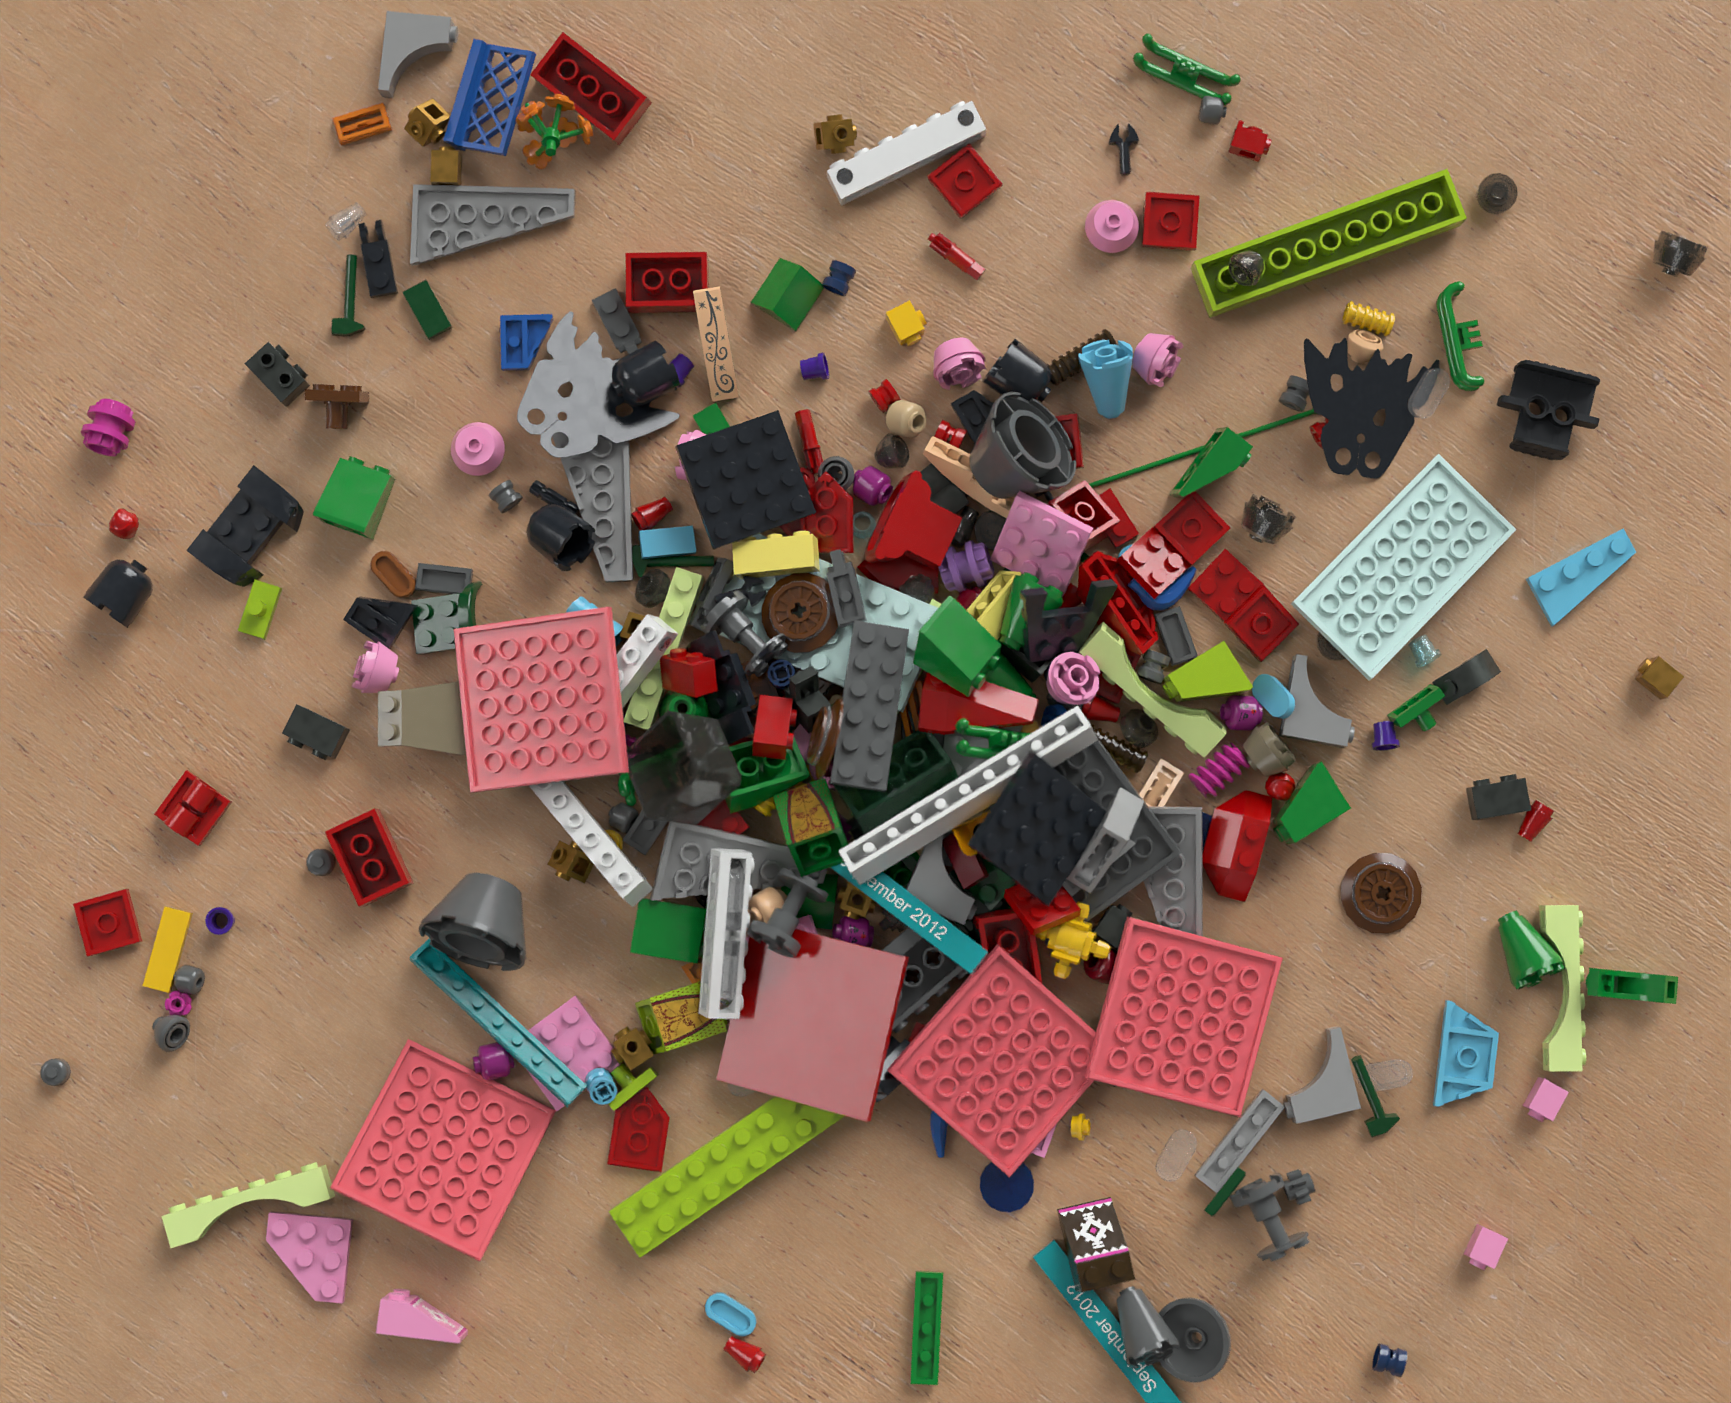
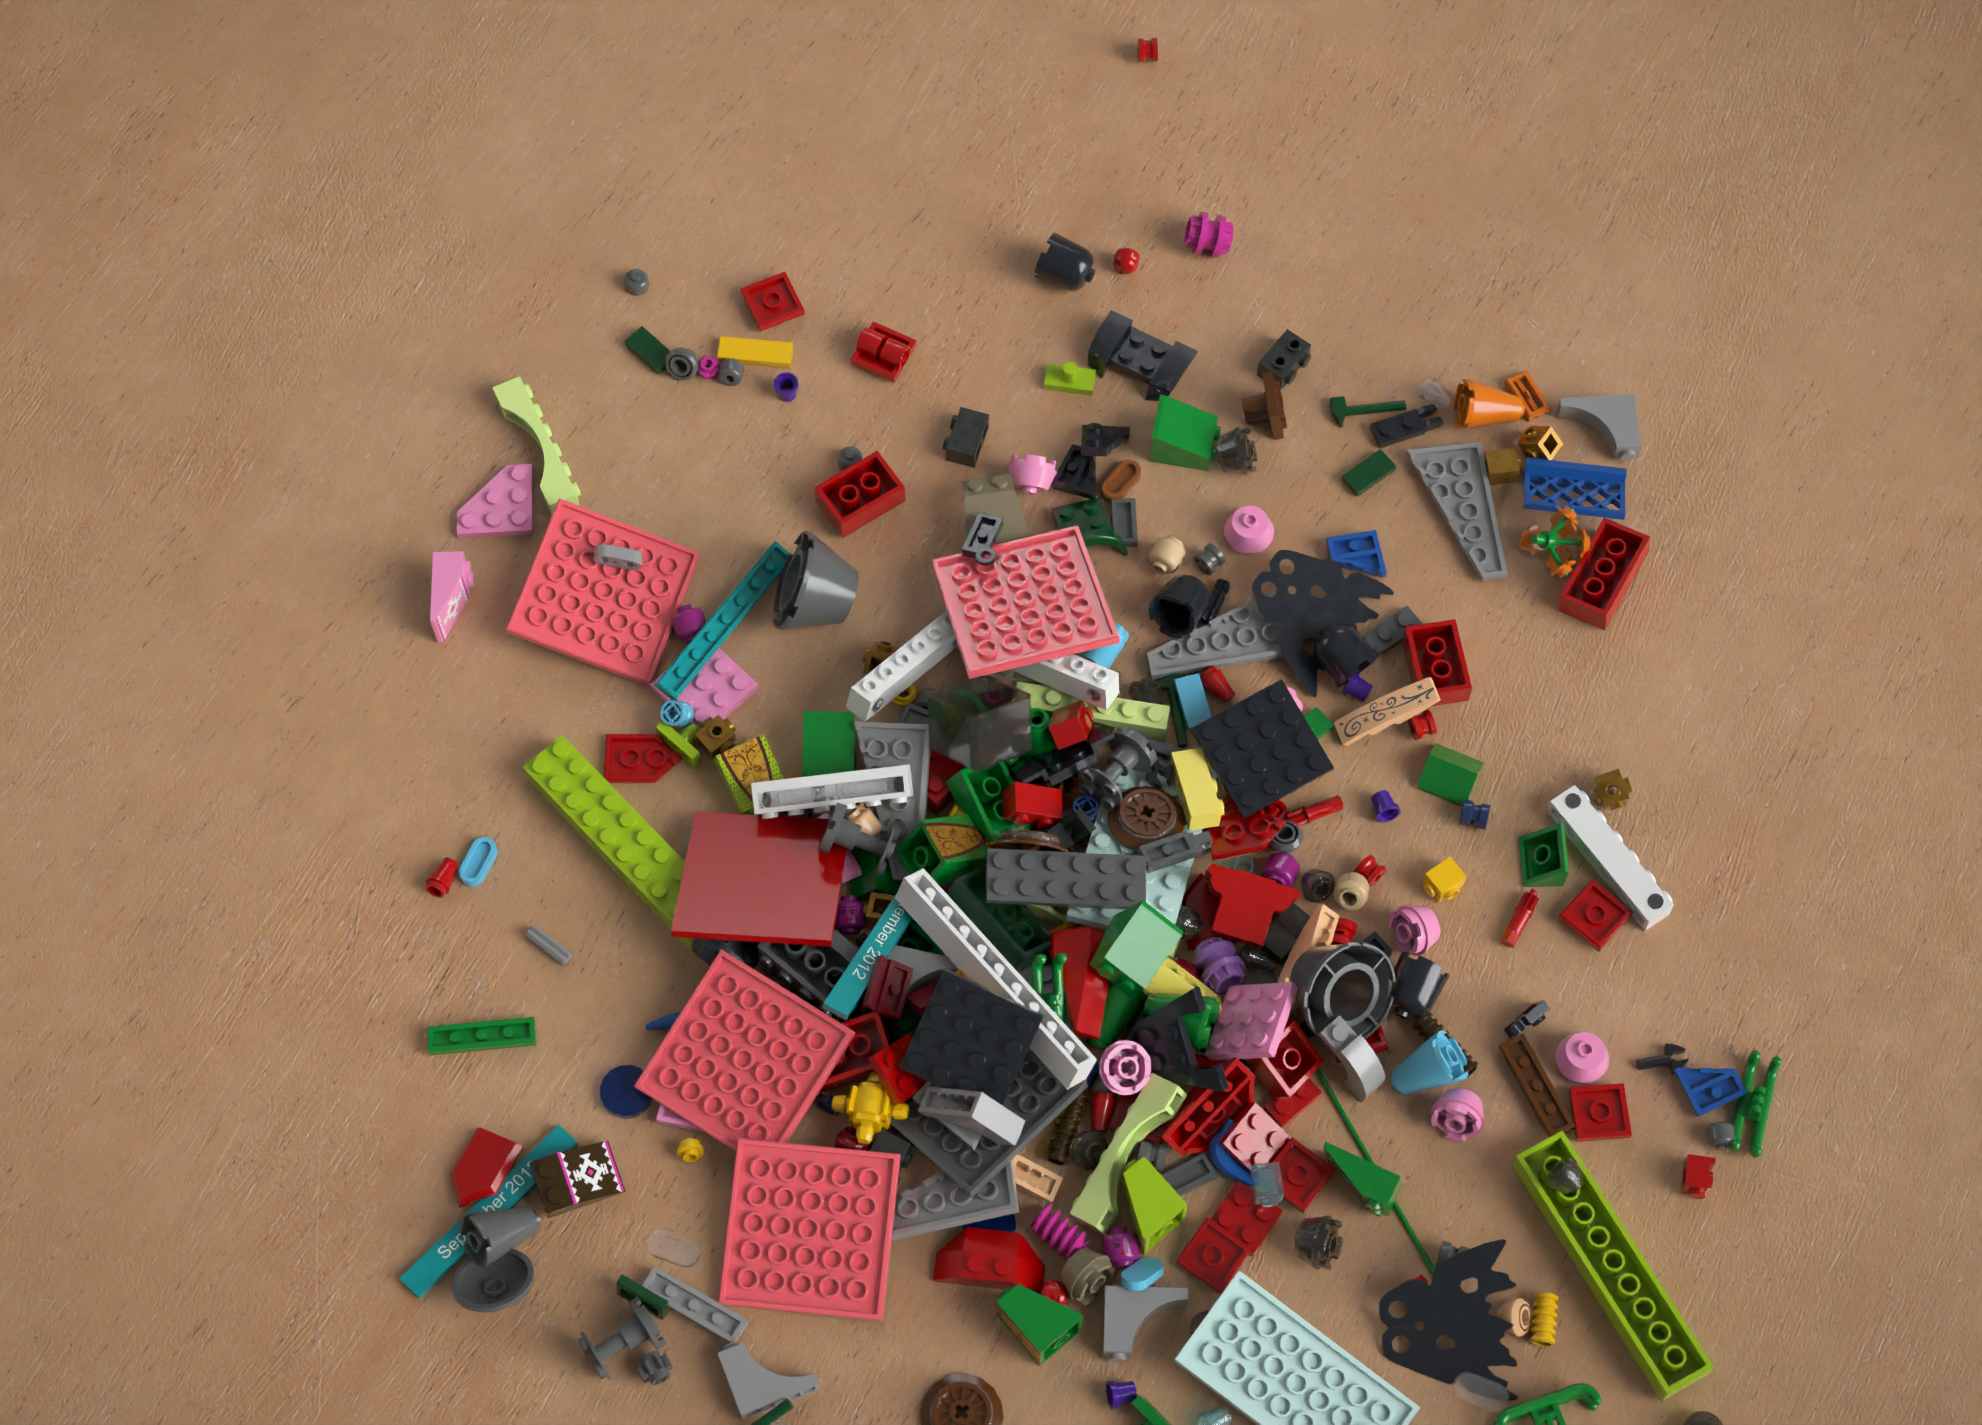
camera: 80 degrees right, 20 degrees down
(144, 1067) = (648, 349): none -> dark green tile
(343, 587) = (1100, 439): none -> black wing
(372, 172) = (1485, 405): none -> orange cone
(385, 445) = (1236, 452): none -> clear smoke cone
(410, 1130) = (618, 557): none -> light grey beam
(458, 733) = (982, 538): none -> hinge
(494, 540) = (1166, 555): none -> tan head
(733, 311) = (1422, 725): none -> red wheel
(836, 1248) = (548, 945): none -> light grey axle
(896, 218) = (1544, 857): none -> green slope
(957, 905) = (888, 987): none -> dark red plate
(1051, 981) = (825, 1103): none -> dark blue piece
(1063, 269) = (1531, 1016): none -> black plate
(1066, 1339) = (483, 1166): none -> red tile
(1091, 449) = (1356, 1055): none -> light grey arch
(1135, 276) = (1536, 1085): none -> reddish brown plate
(1162, 109) = (1710, 1087): none -> blue wing
(1204, 559) = (1267, 1184): none -> clear light blue brick

